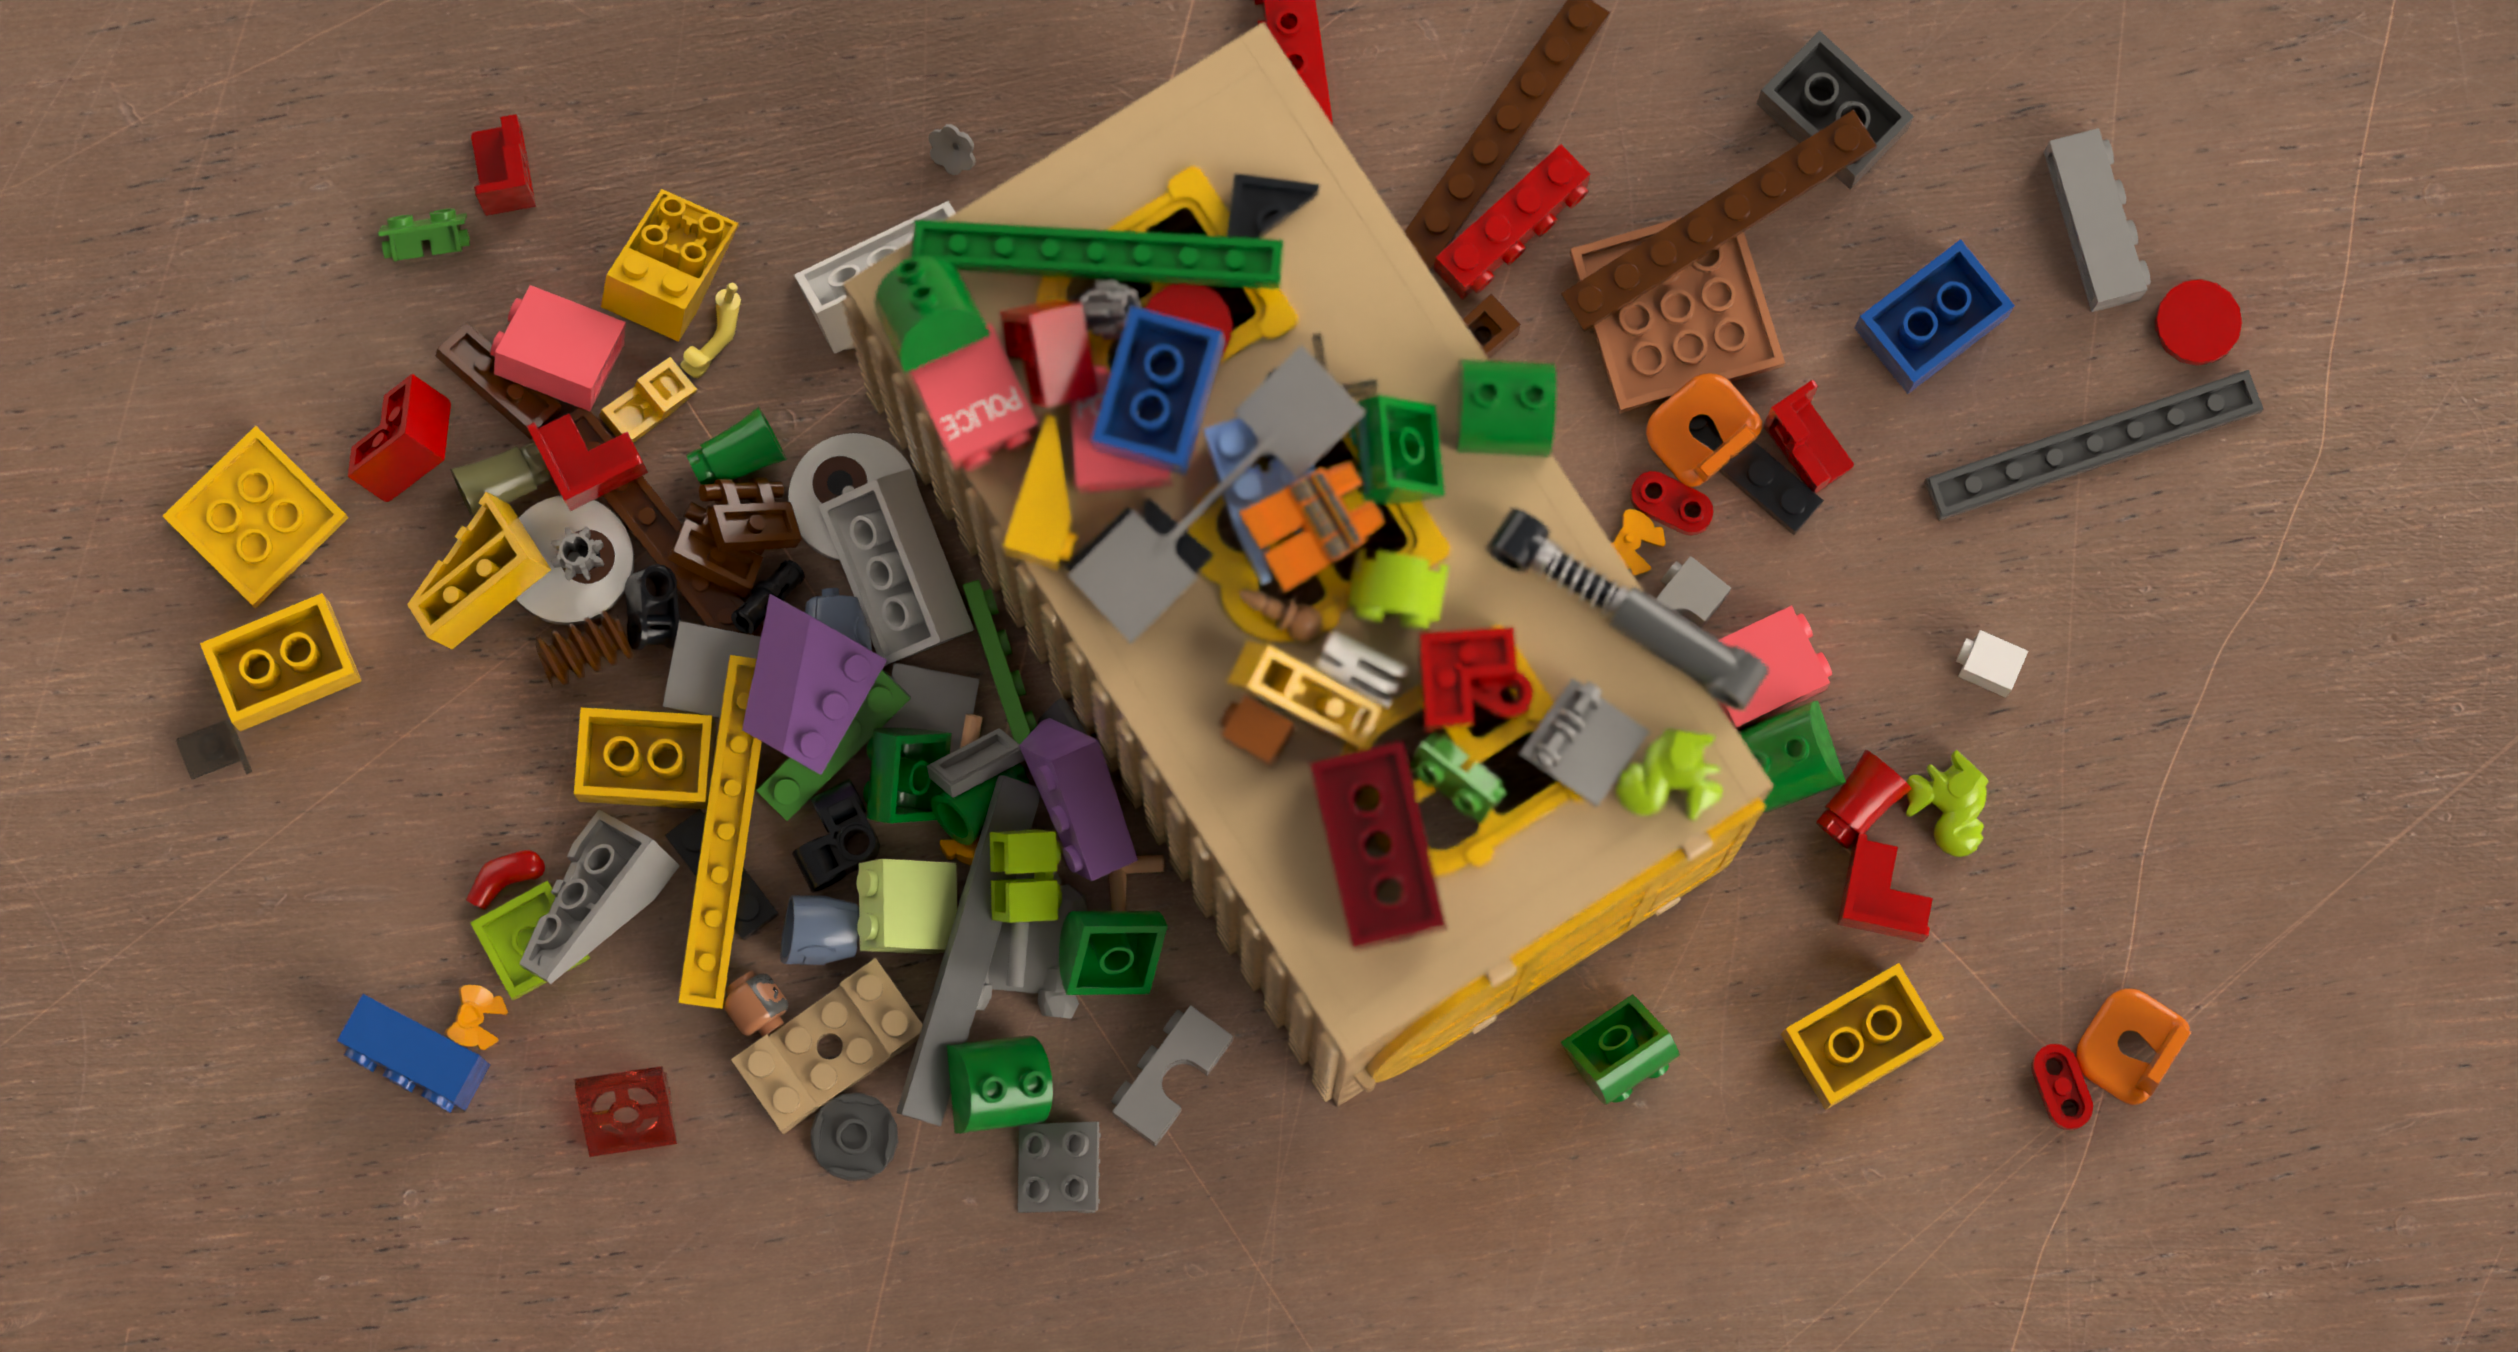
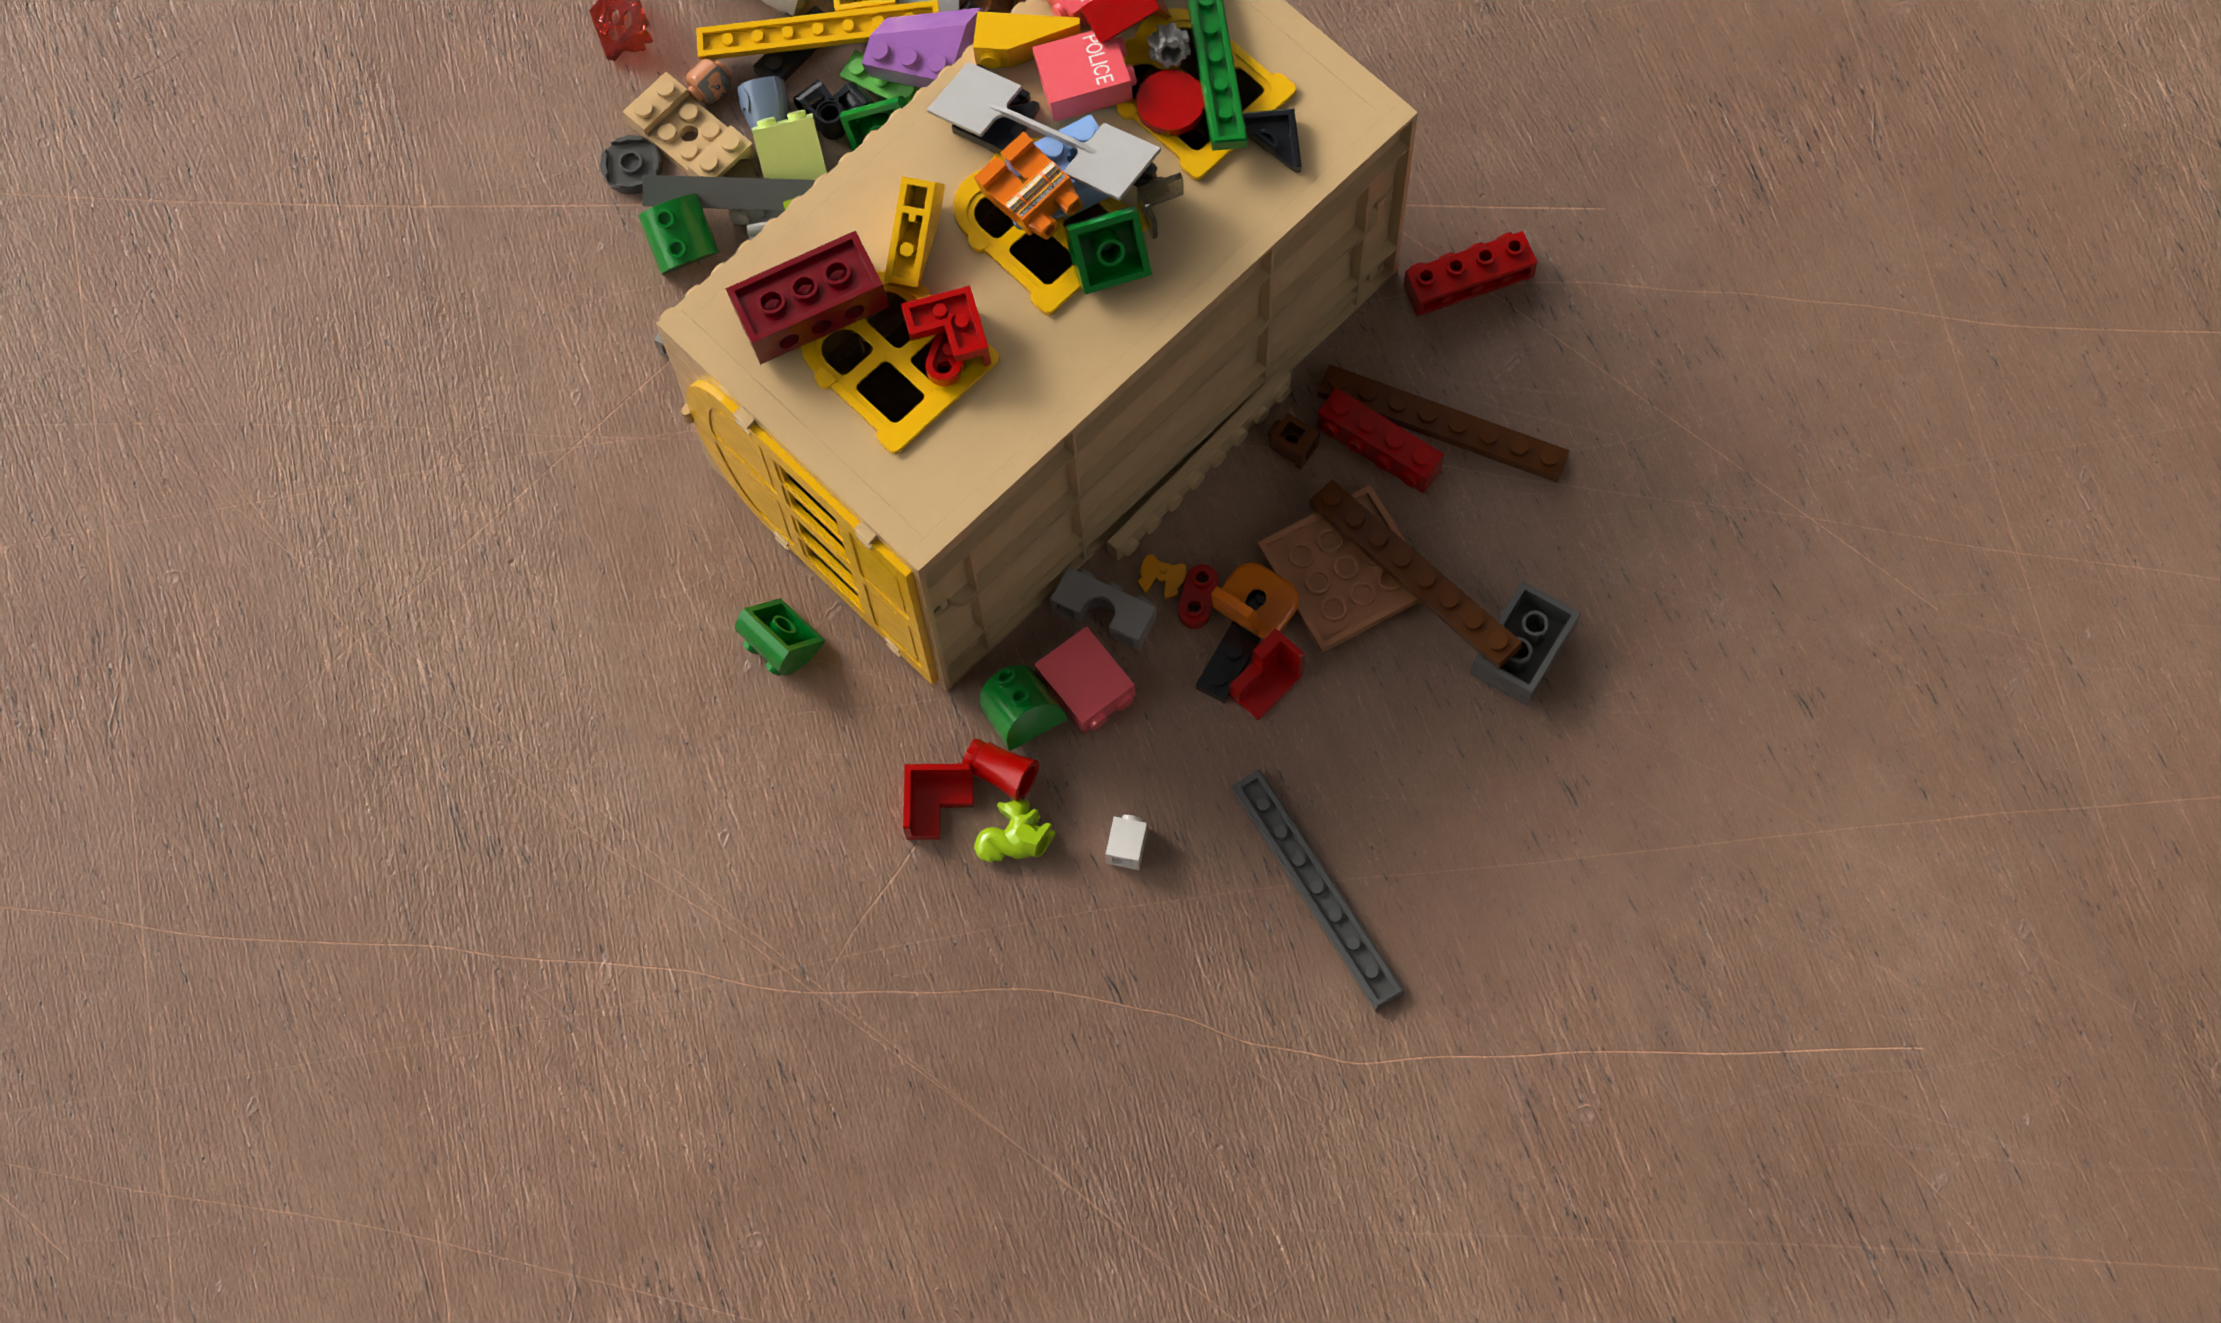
camera: 85 degrees right, 10 degrees down
(1058, 1167) = (631, 291): light grey hinge -> none
(1158, 390) = (1105, 68): blue brick -> none
(1256, 730) = (877, 207): dark orange brick -> none
(1300, 621) = (969, 222): medium nougat bar -> none
(1360, 668) = (941, 262): white arm -> none
(1397, 588) = (1001, 268): lime brick -> none
(1439, 764) = (867, 356): bright green hinge -> none
(1506, 407) = (1163, 322): green brick -> none
(1584, 741) = (919, 427): light grey hinge -> none
(1671, 763) = (914, 488): lime animal -> none
(1724, 670) = (996, 510): piece -> none
(1862, 1036) = (820, 800): yellow brick -> none
(1934, 316) = (1383, 745): blue brick -> none
(2066, 1086) = (811, 954): red plate -> none
(2096, 219) = (1492, 853): light grey brick -> none
(2122, 1075) = (876, 1016): orange piece -> none
(2198, 322) = (1433, 947): red tile -> none

